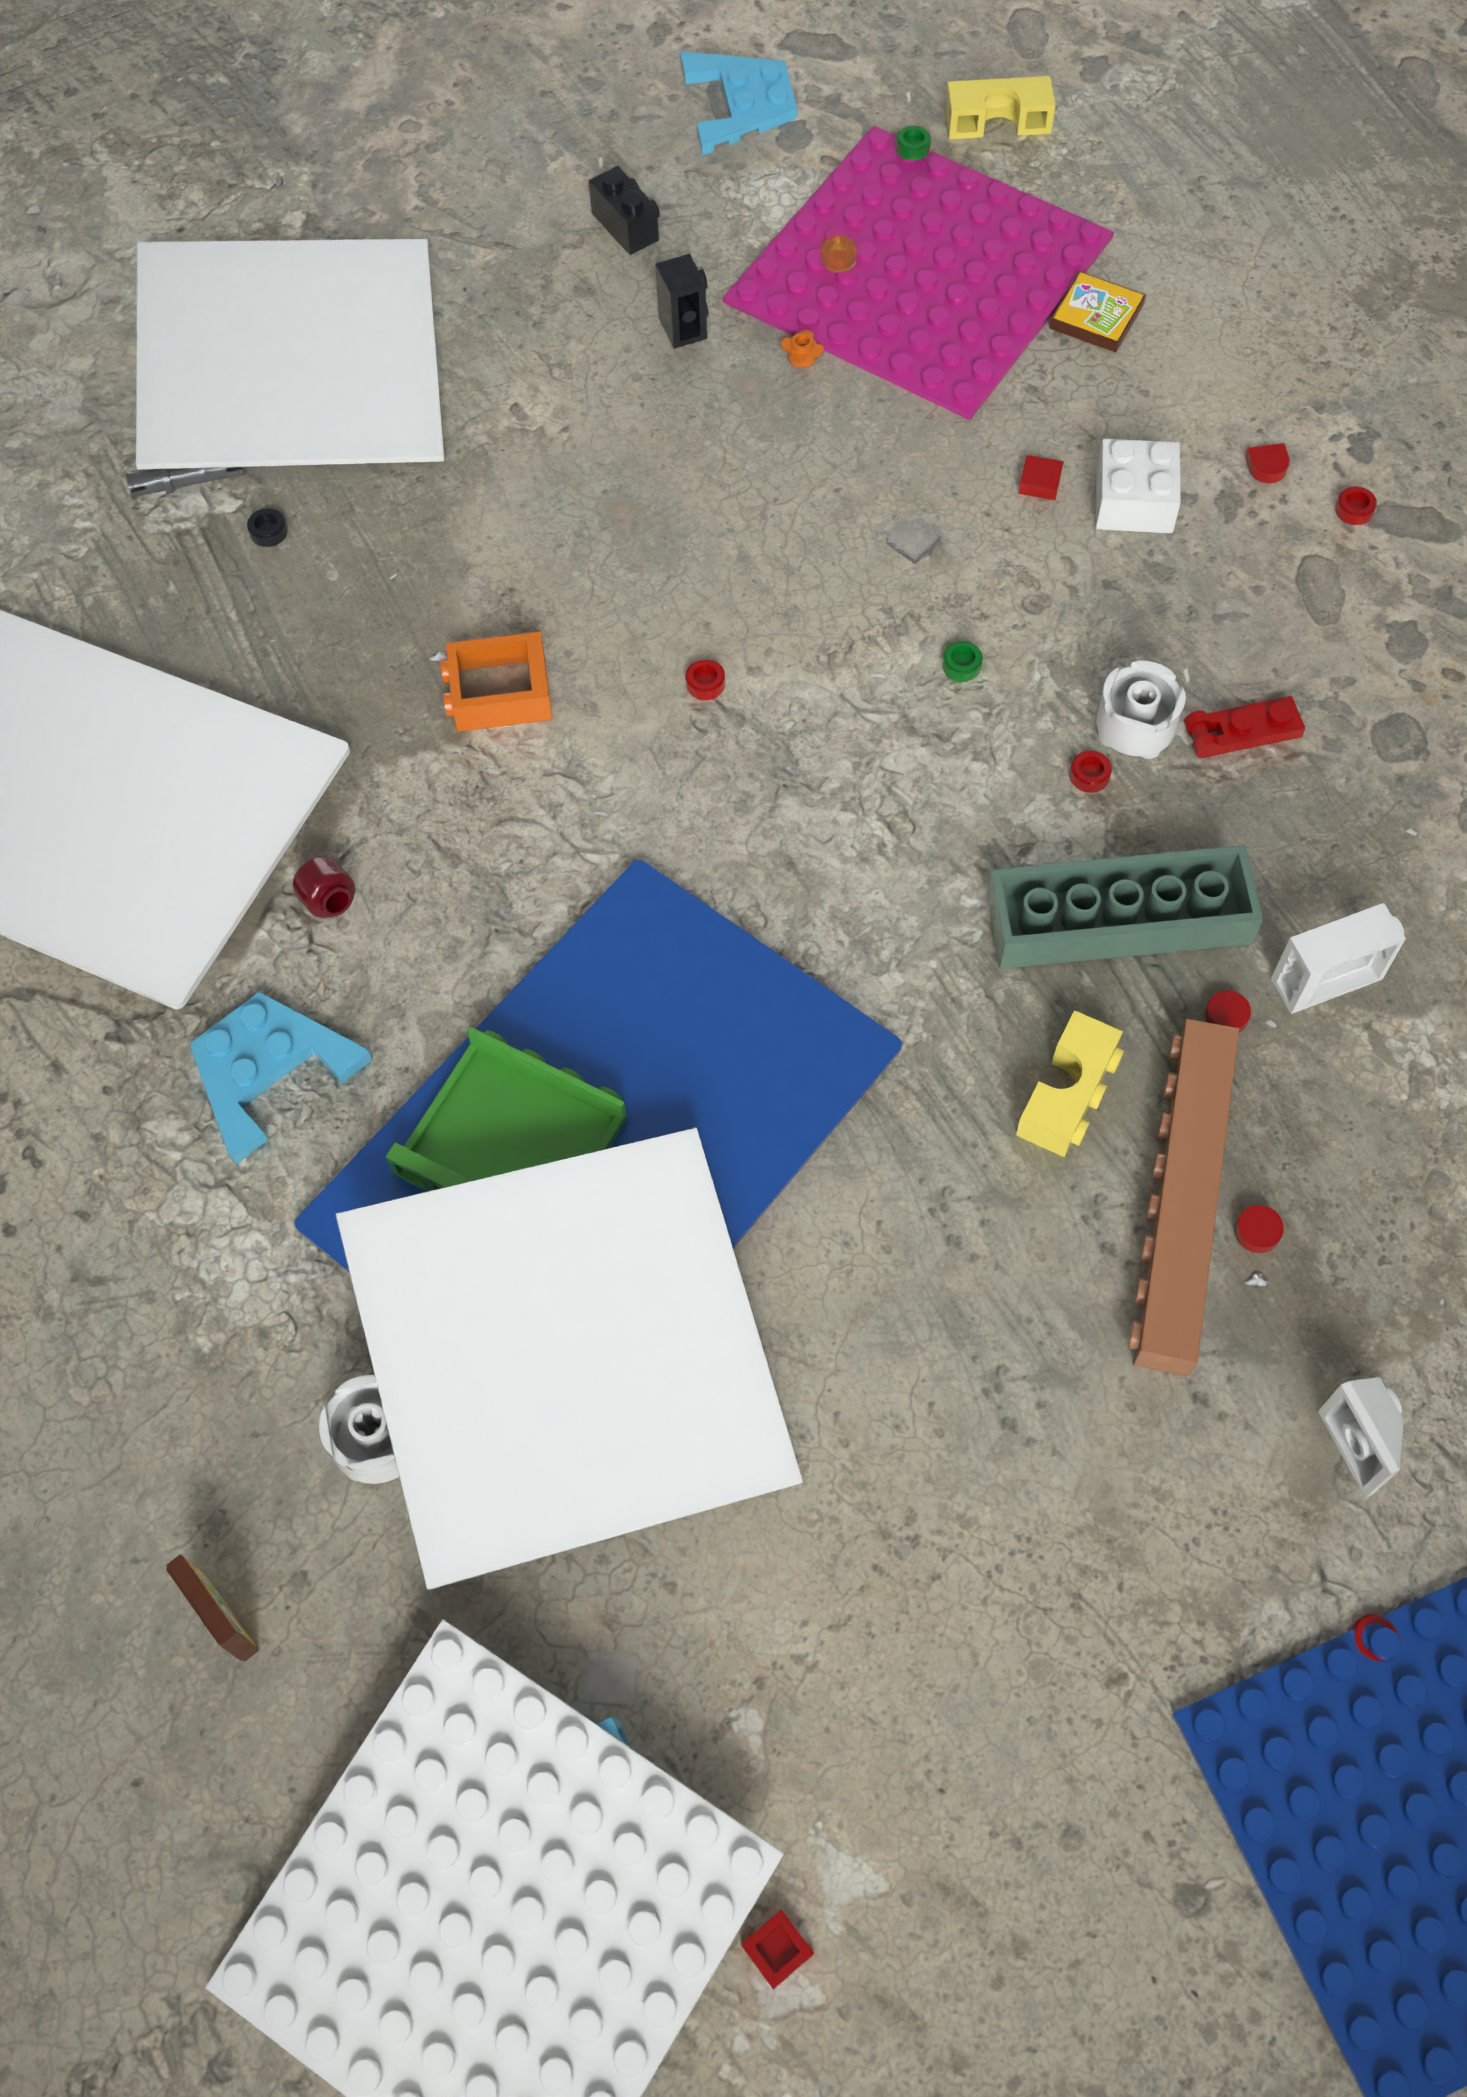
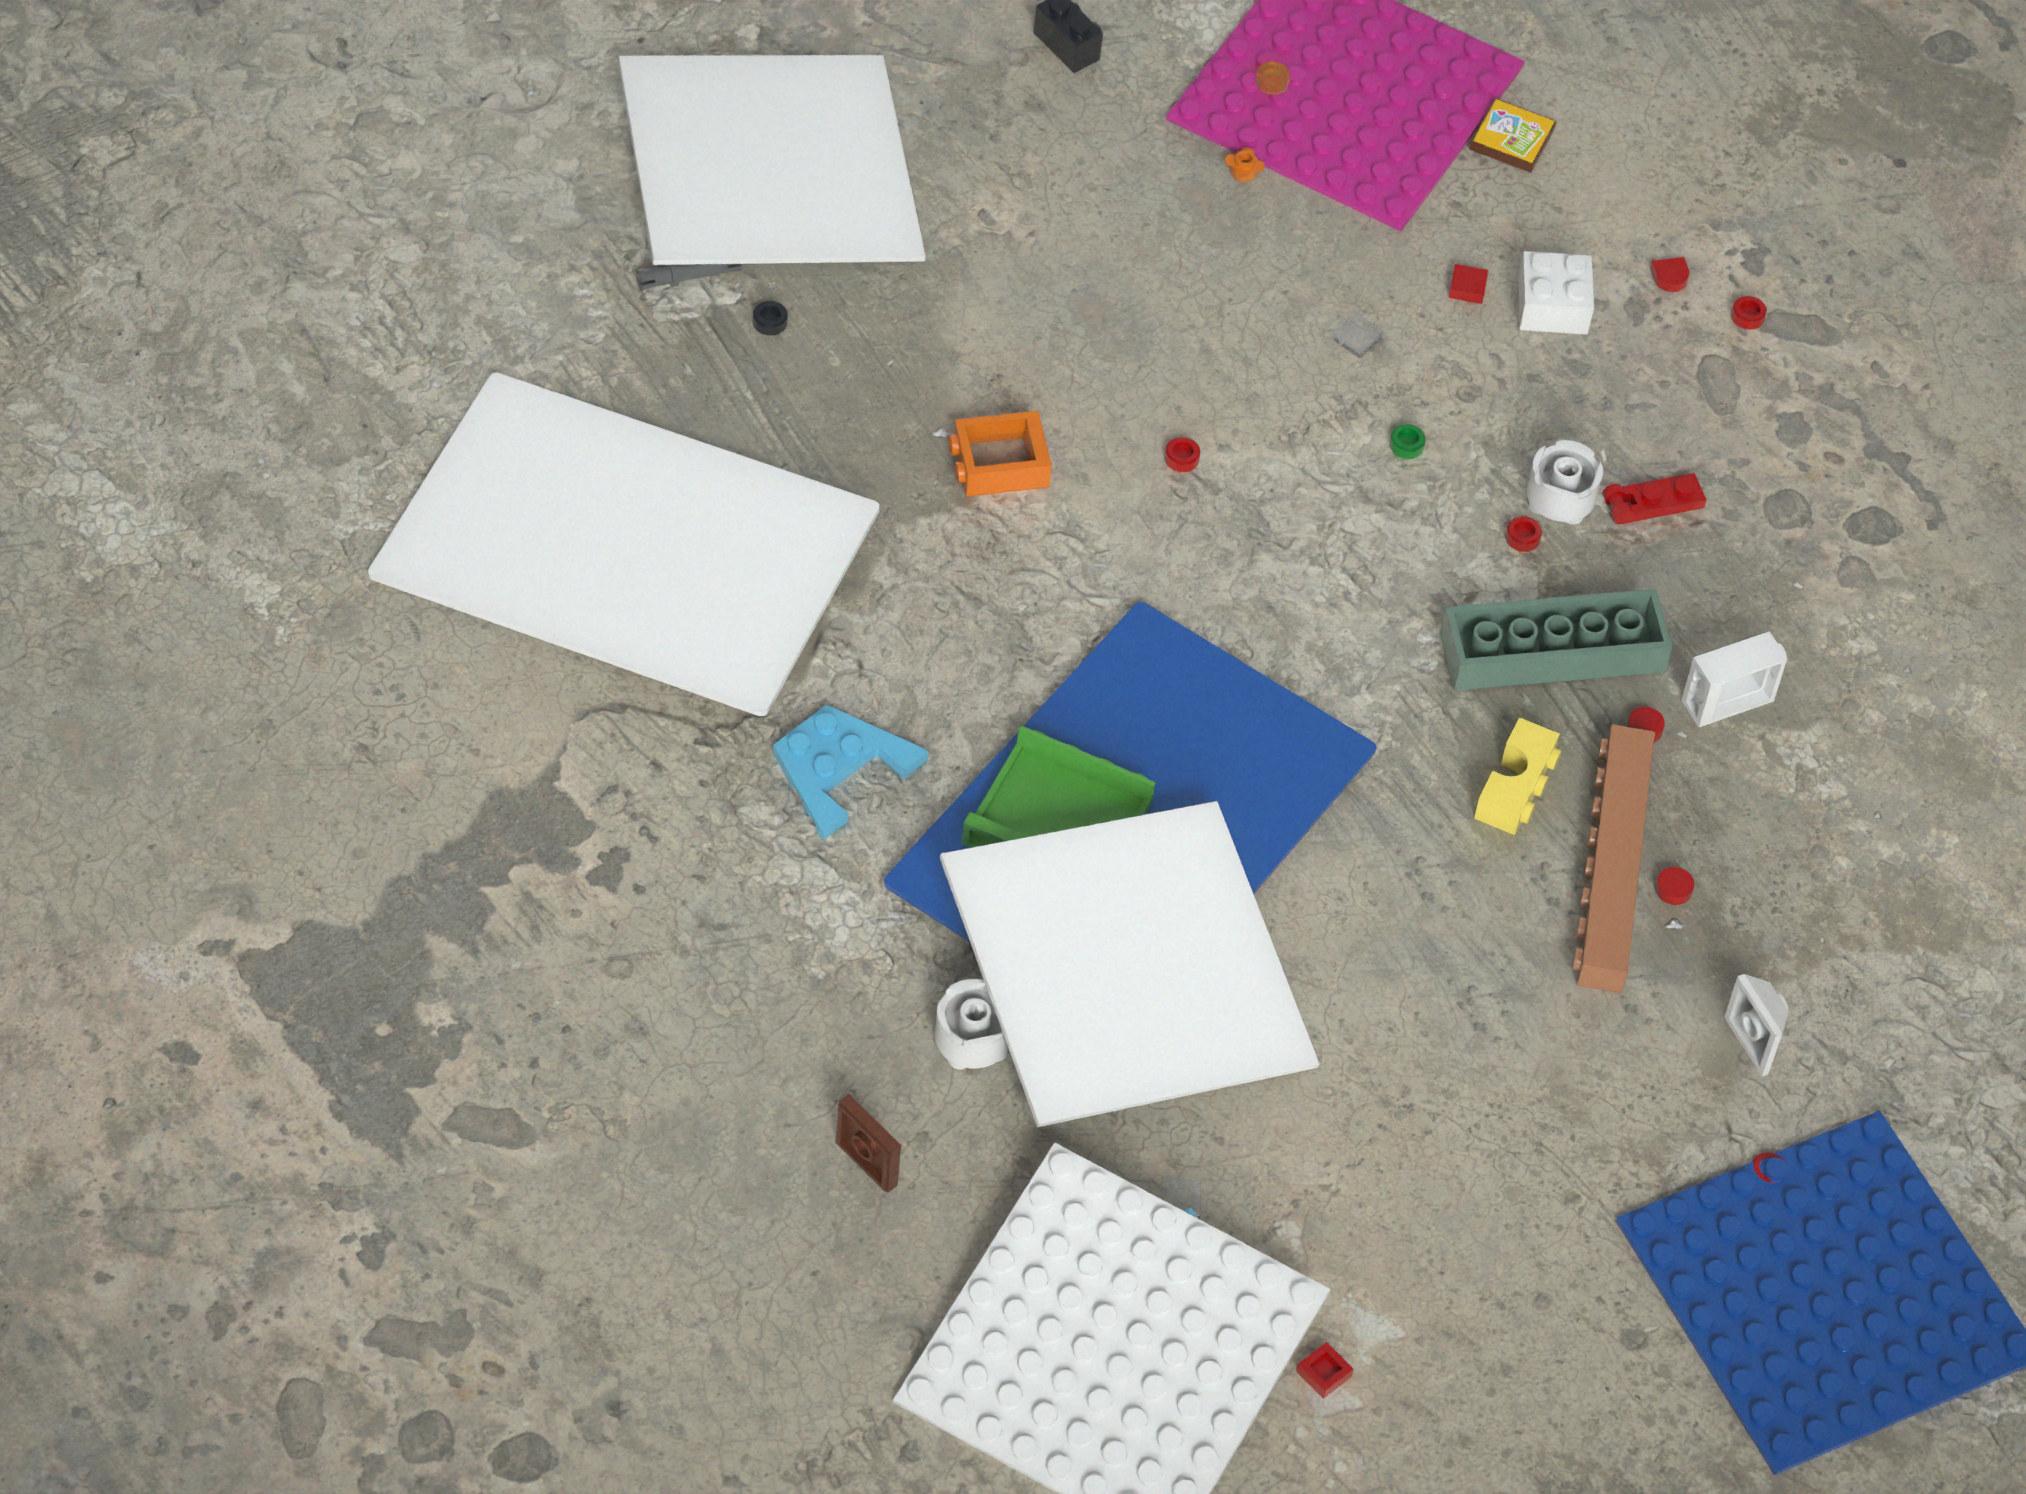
camera: 10 degrees left, 10 degrees down
(324, 887) = (871, 621): dark red head -> none
(682, 300) = (1133, 120): black brick -> none

